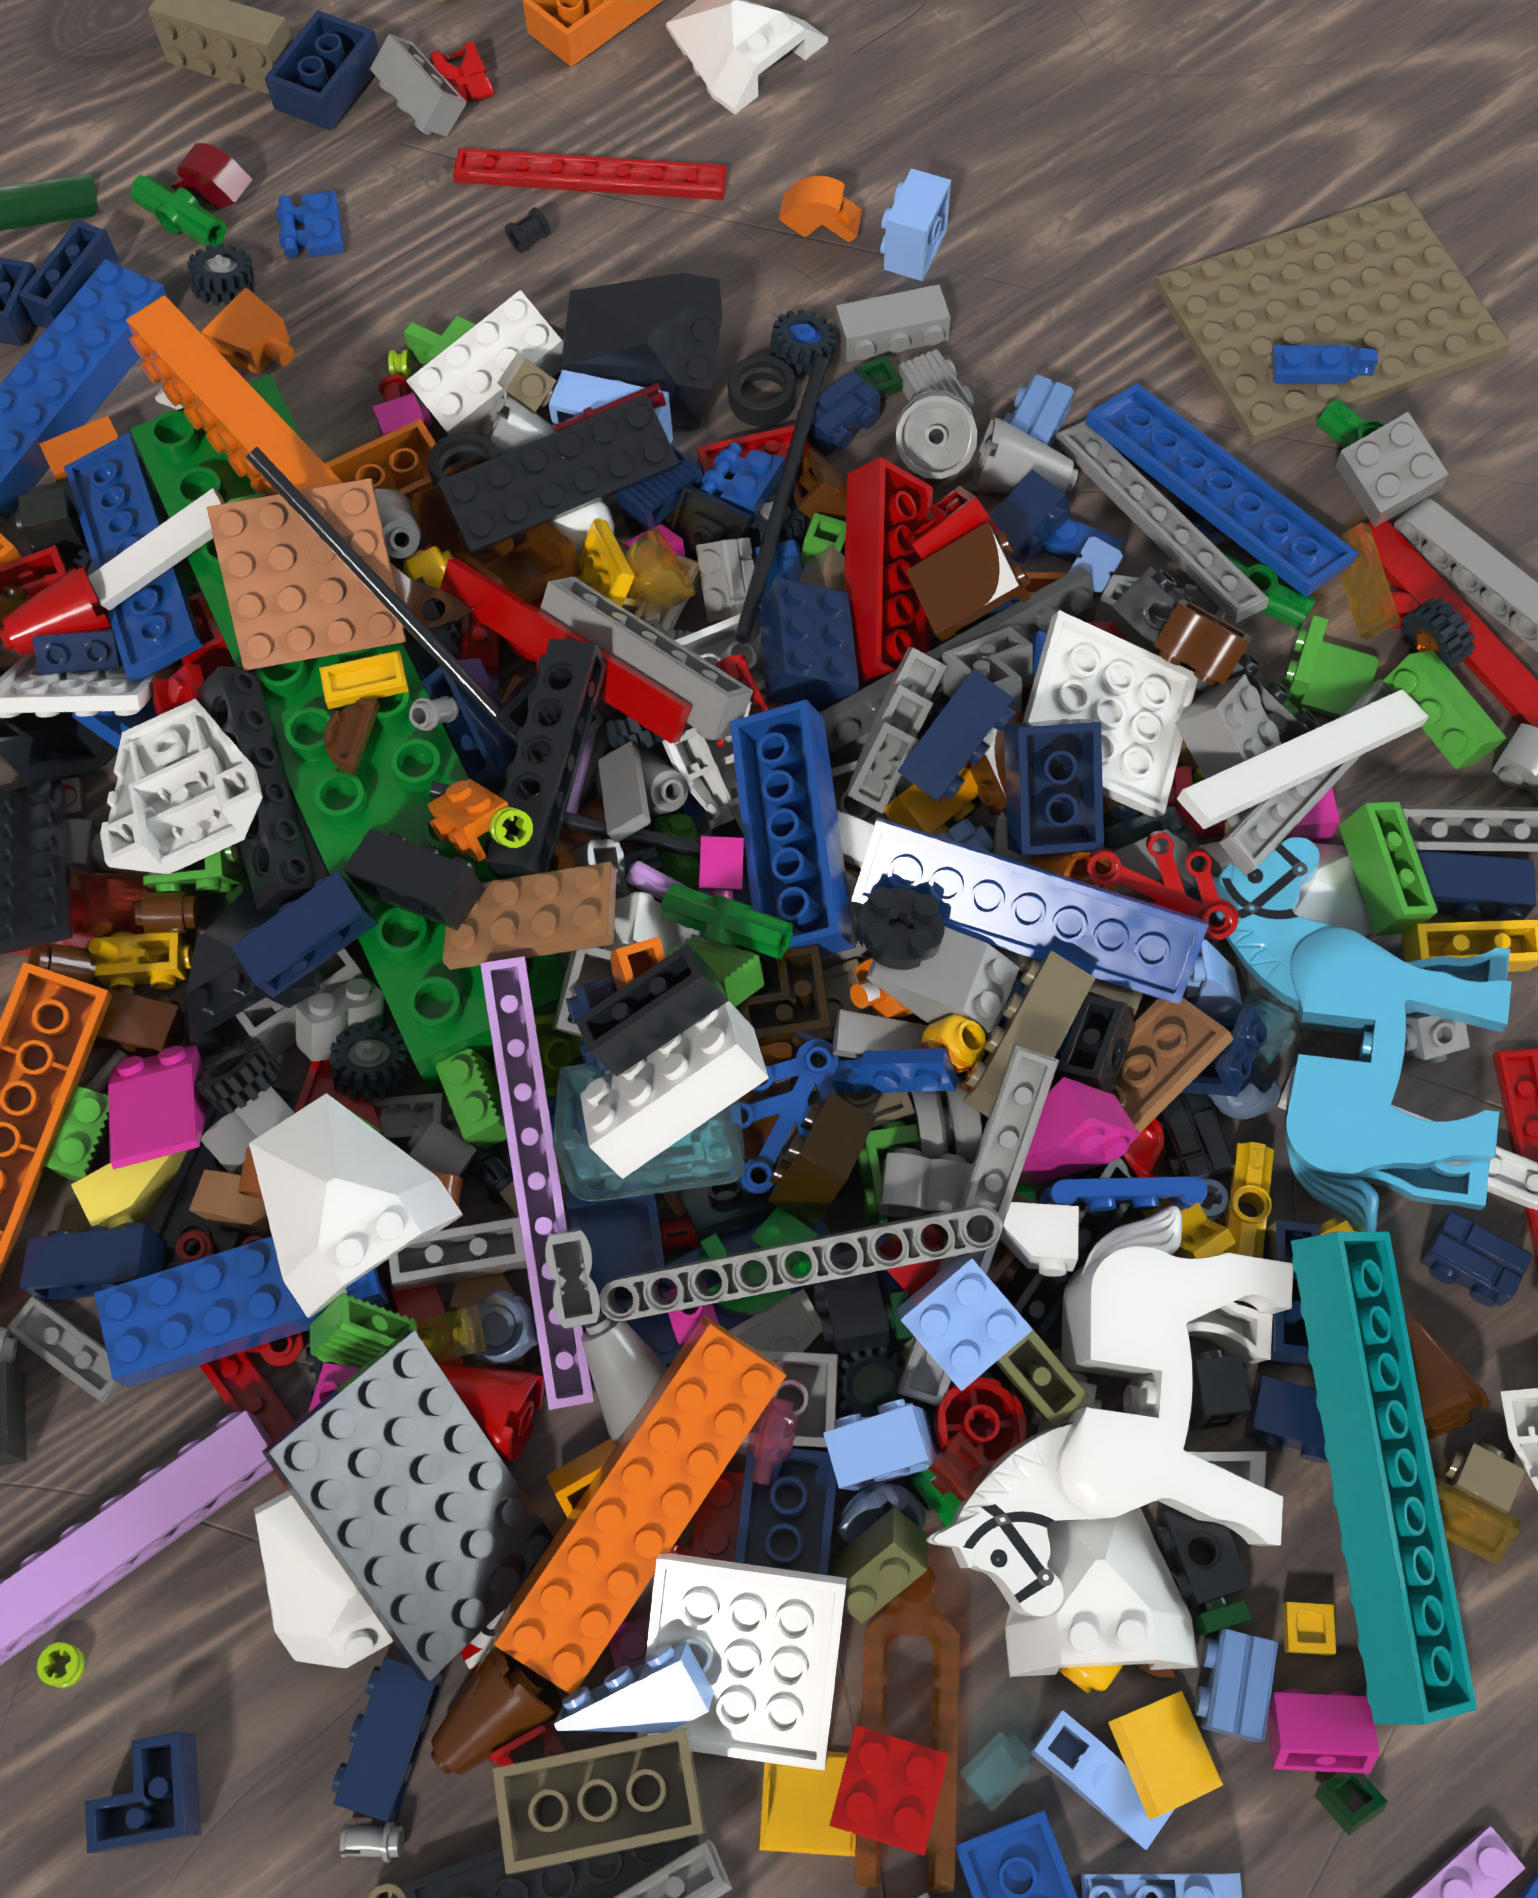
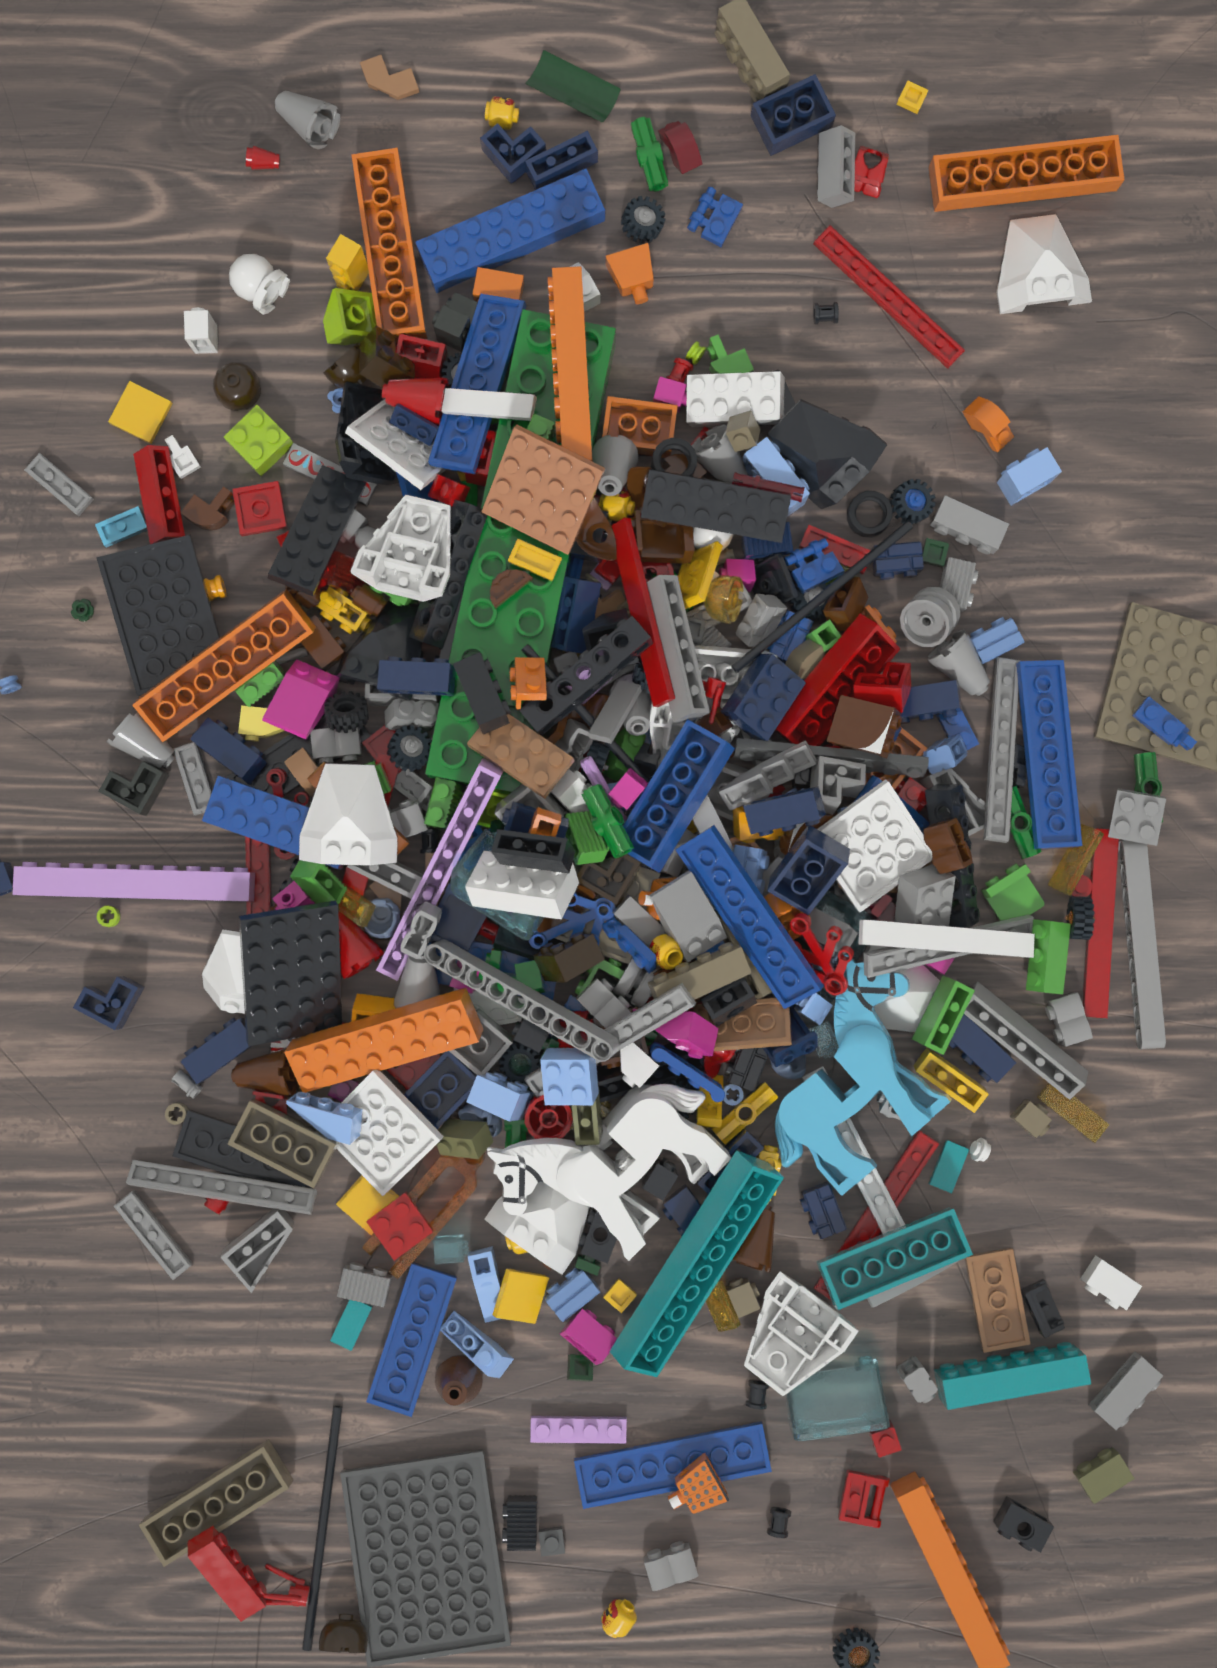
camera: 30 degrees right, 20 degrees up
(377, 586) = (569, 522): black piece -> none
(429, 713) = (550, 603): light grey pin -> none
(523, 823) = (536, 713): lime bush -> none
(772, 1438) = (457, 1058): clear pink plant -> none
(904, 906) = (696, 884): black plate -> none
(959, 1468) = (522, 1131): clear red tile -> none

